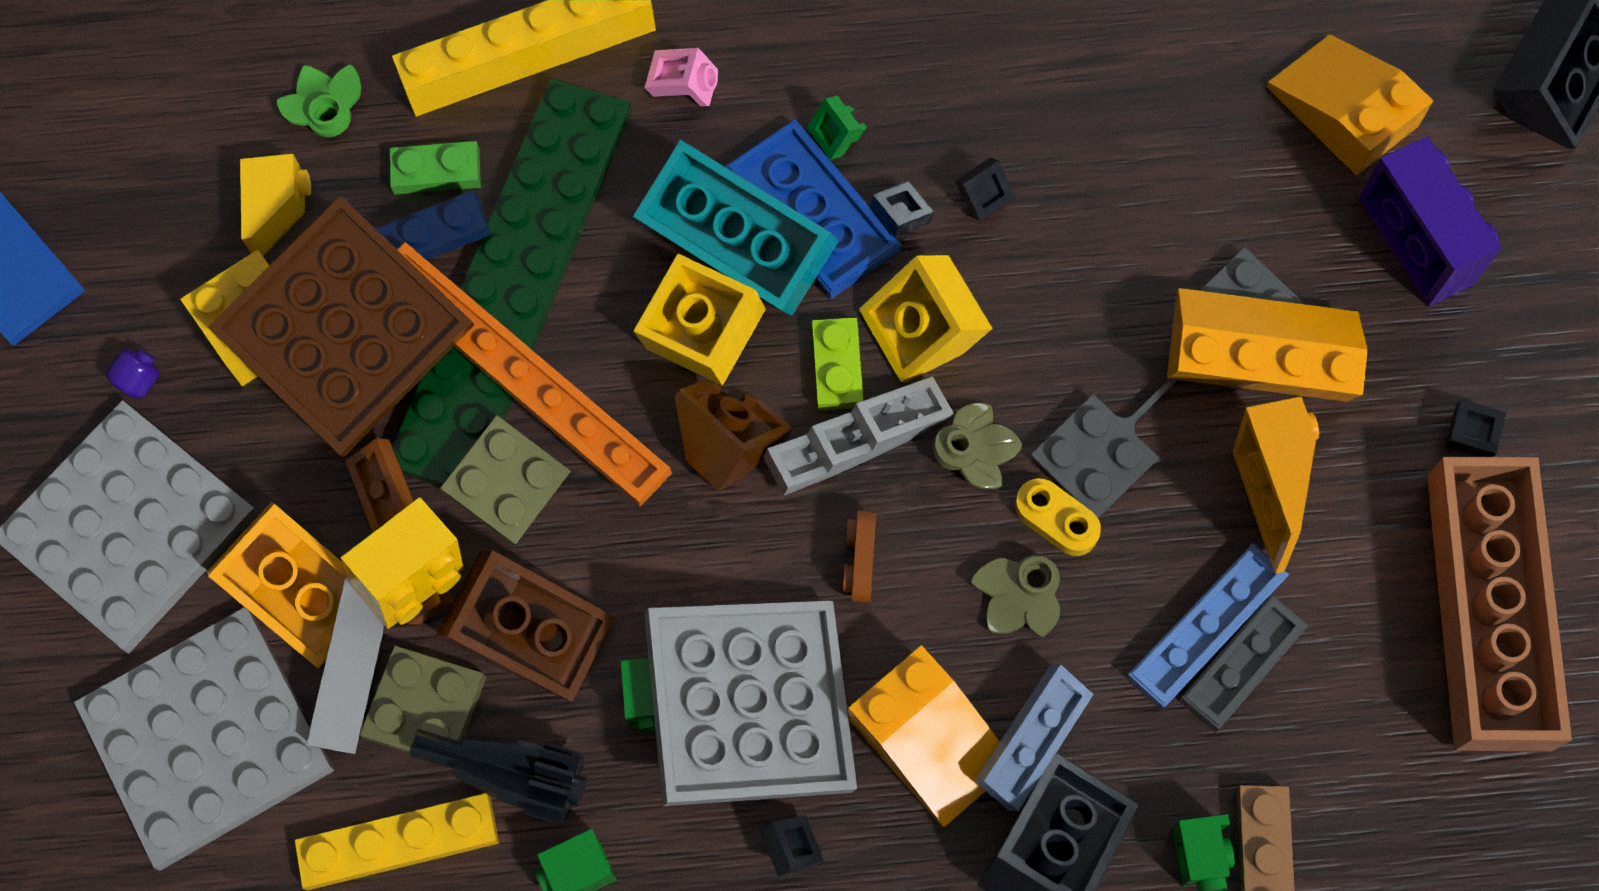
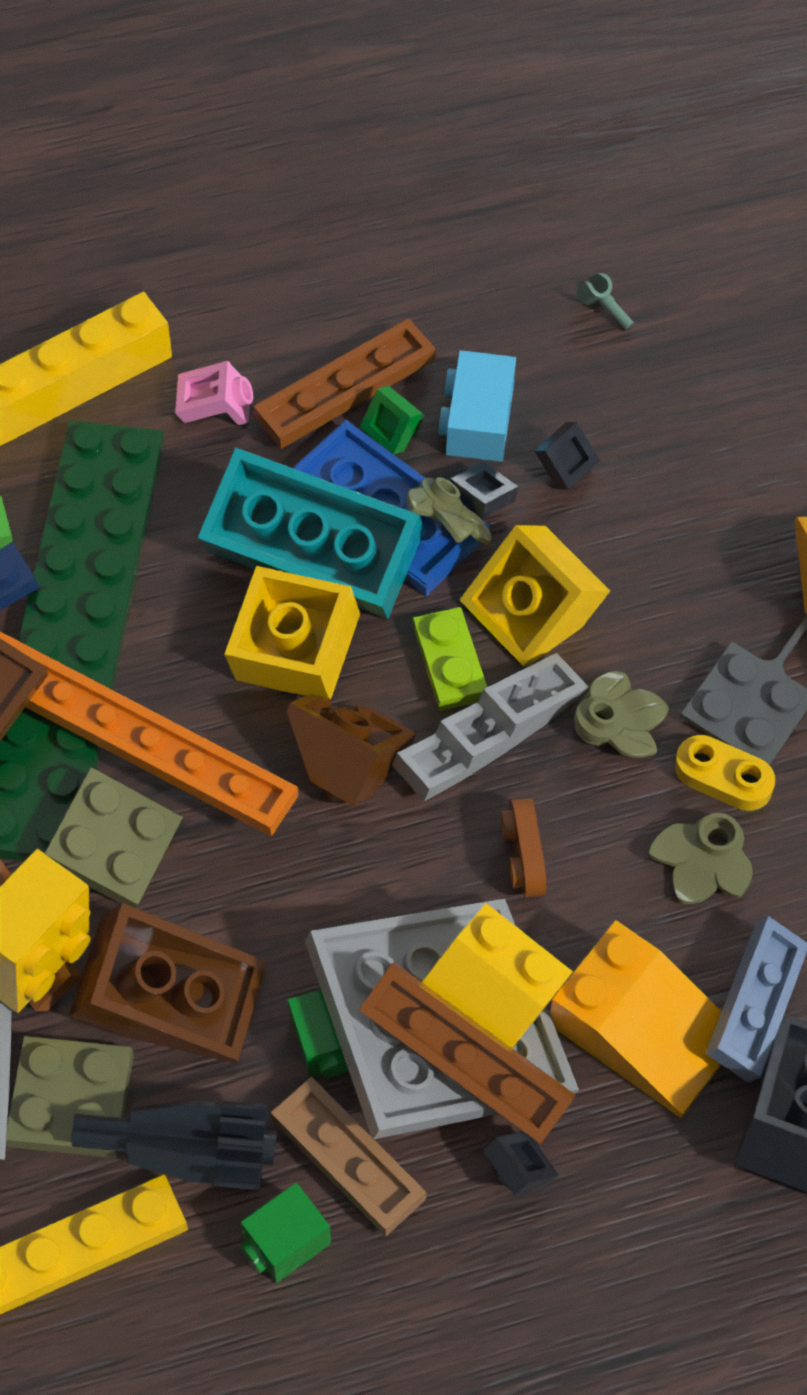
camera: 15 degrees left, 10 degrees down
(639, 801) = (348, 1156): none -> medium nougat plate
(760, 746) = (467, 1052): none -> dark orange plate
(794, 688) = (497, 976): none -> yellow slope
(801, 83) = (344, 383): none -> dark orange plate
(859, 220) = (441, 502): none -> olive plate
(916, 127) = (479, 405): none -> medium azure brick
(1055, 37) = (601, 294): none -> sand green hand

